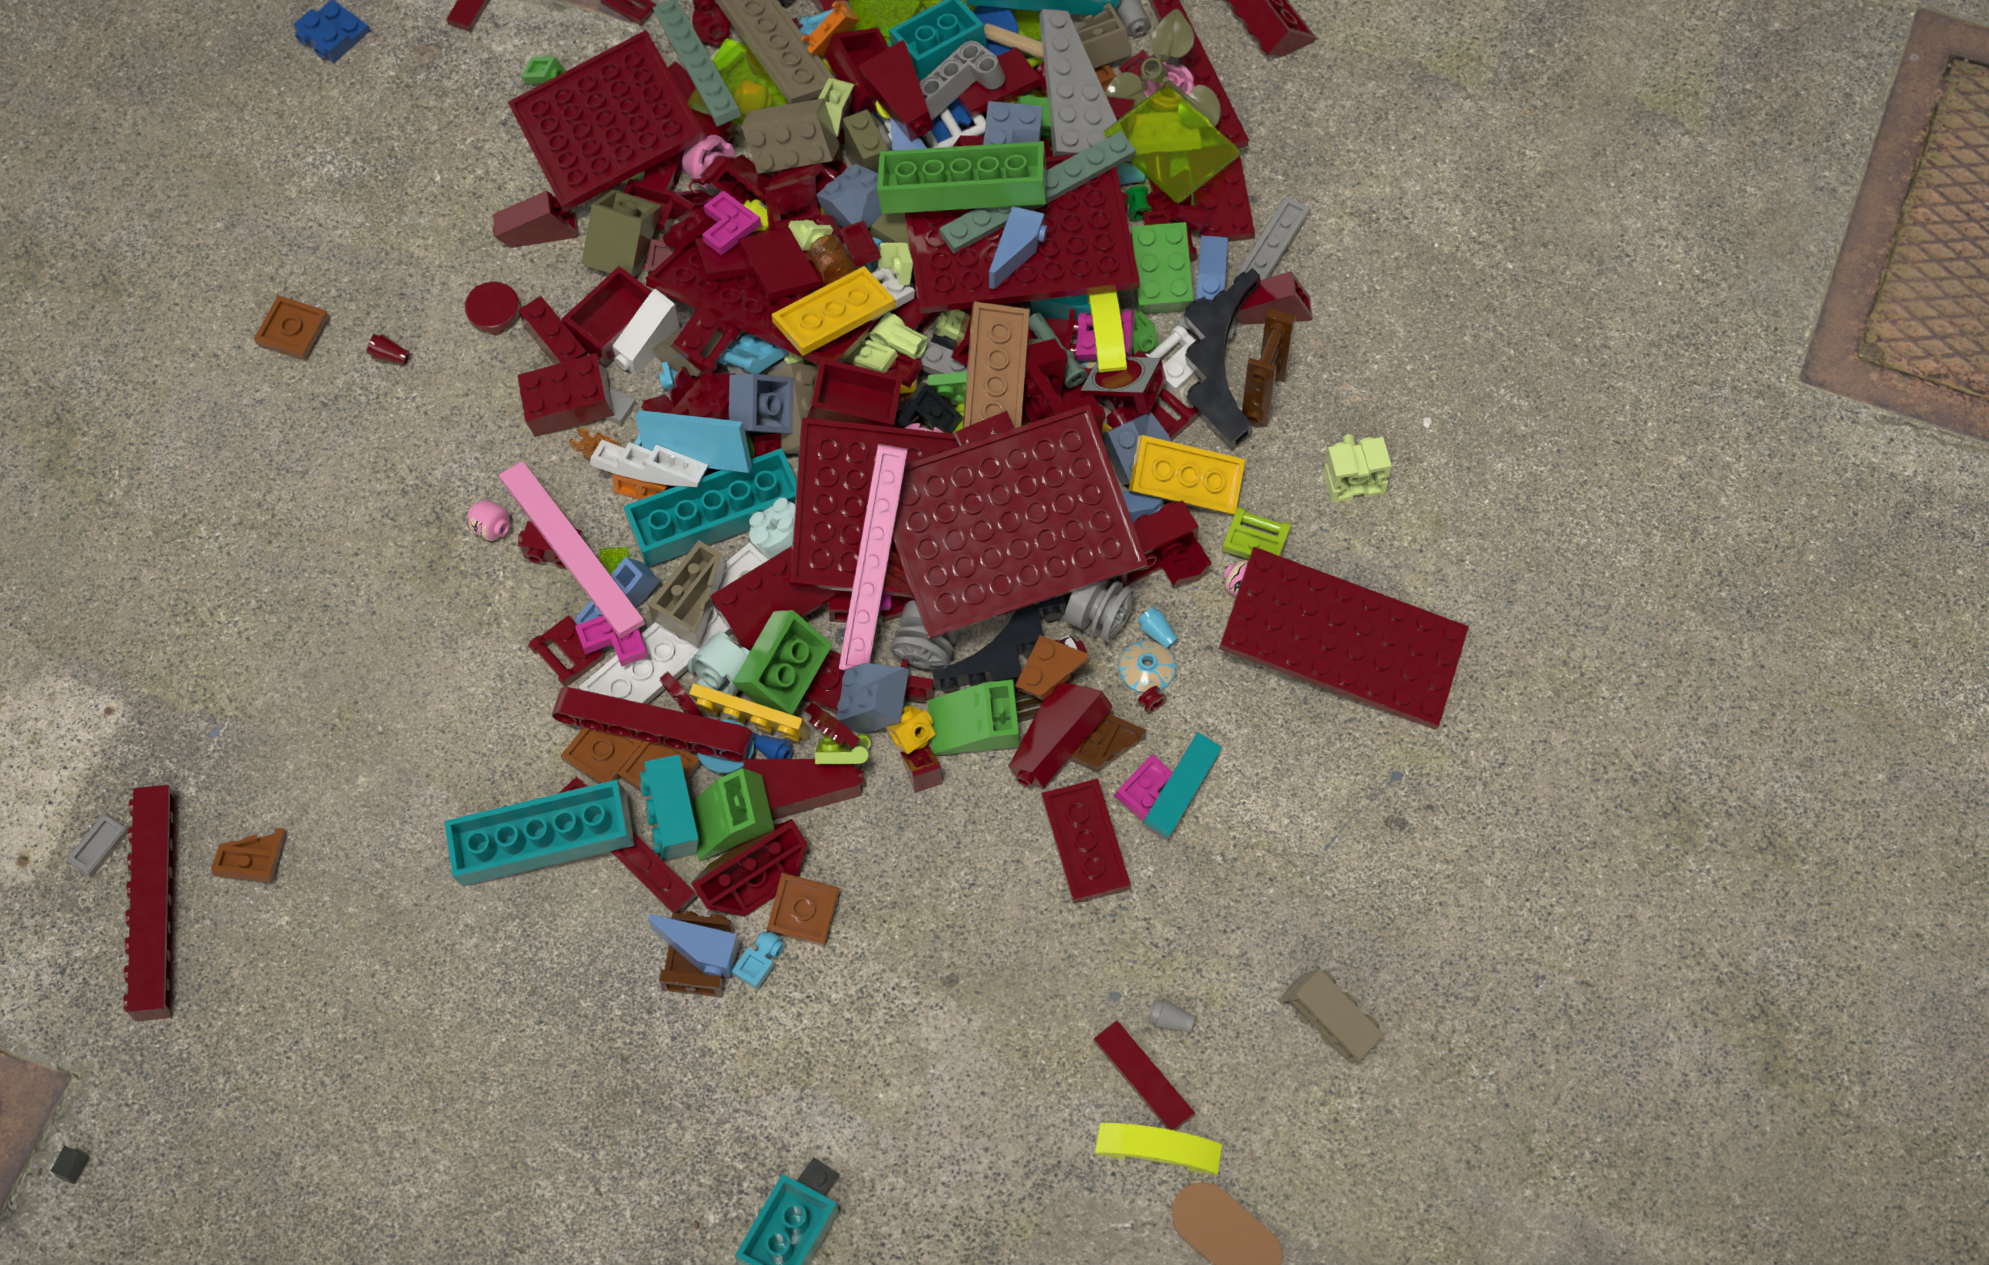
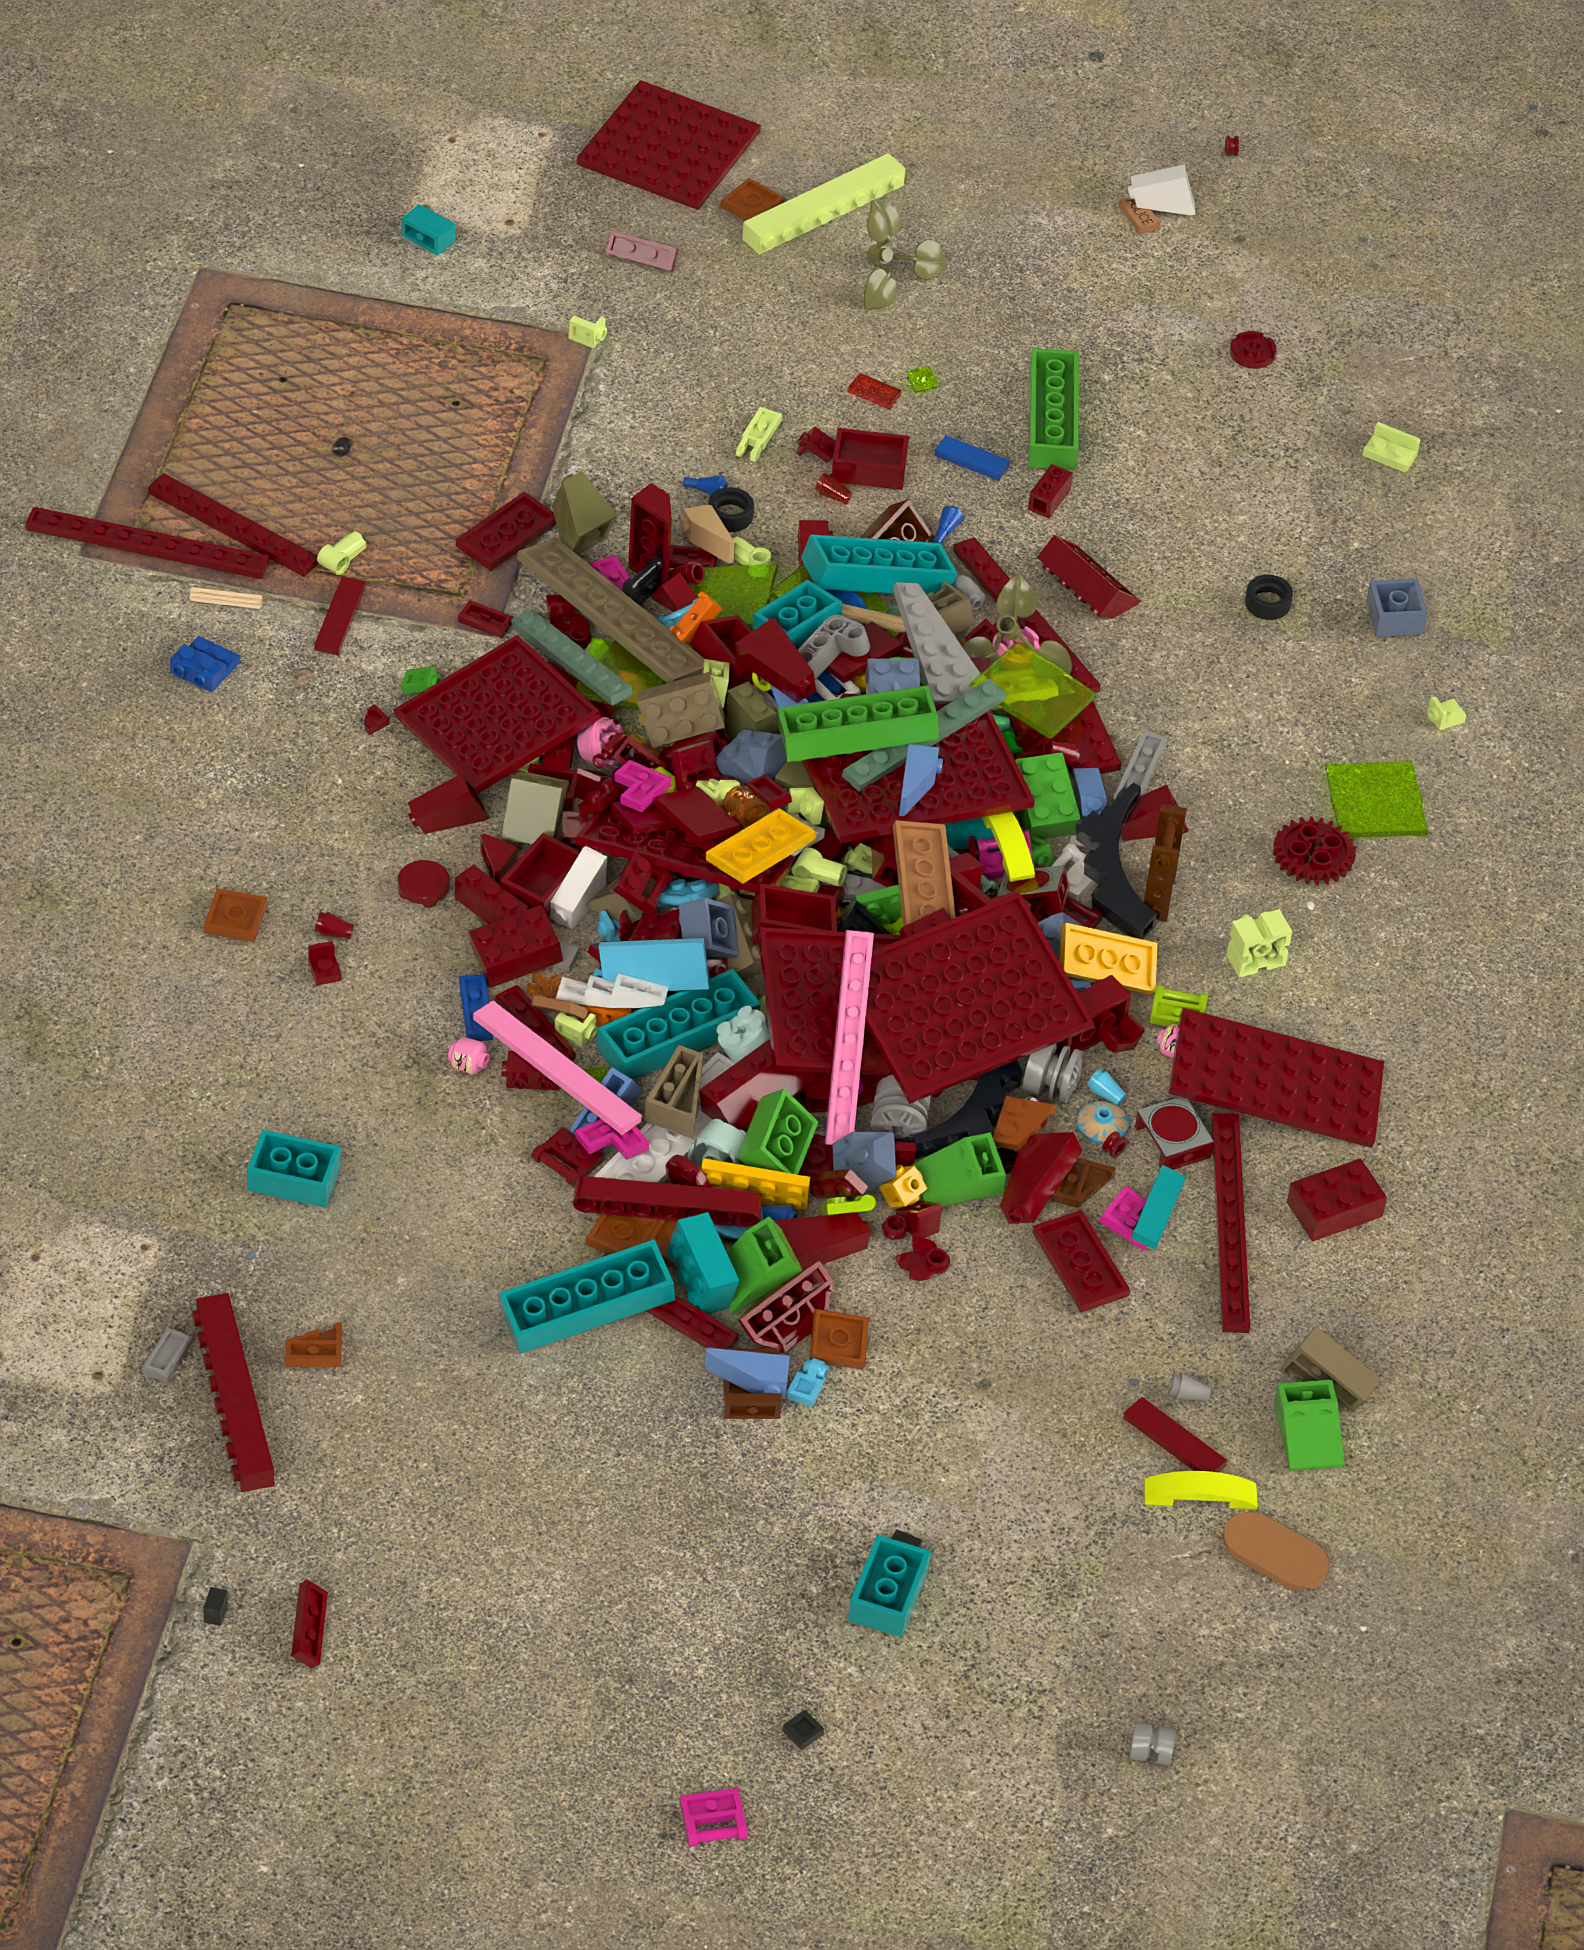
camera: 15 degrees left, 15 degrees down
(160, 1200) = (309, 1624): none -> dark red plate
(274, 639) = (293, 1168): none -> teal brick
(368, 393) = (323, 963): none -> dark red bracket
(488, 111) = (375, 720): none -> dark red tile
(513, 450) = (474, 997): none -> blue tile
(569, 488) = (520, 1007): none -> dark red tile
(574, 284) = (497, 856): none -> dark red slope
(593, 474) = (556, 1006): none -> medium nougat tile
(607, 500) = (574, 1031): none -> yellowish green bracket
(890, 770) = (895, 1222): none -> dark red plate
(912, 818) = (922, 1258): none -> dark red plate
(1219, 693) = (1176, 1132): none -> dark red panel
(1259, 812) = (1230, 1223): none -> dark red plate
(1294, 1083) = (1309, 1424): none -> bright green slope
(1381, 796) = (1336, 1199): none -> dark red brick
(1422, 346) = (1328, 860): none -> dark red gear
(1456, 31) = (1264, 609): none -> black tyre
(1524, 300) = (1376, 799): none -> clear neon green piece
(1589, 72) = (1396, 607): none -> sand blue slope
(1619, 203) = (1445, 713): none -> yellowish green bracket

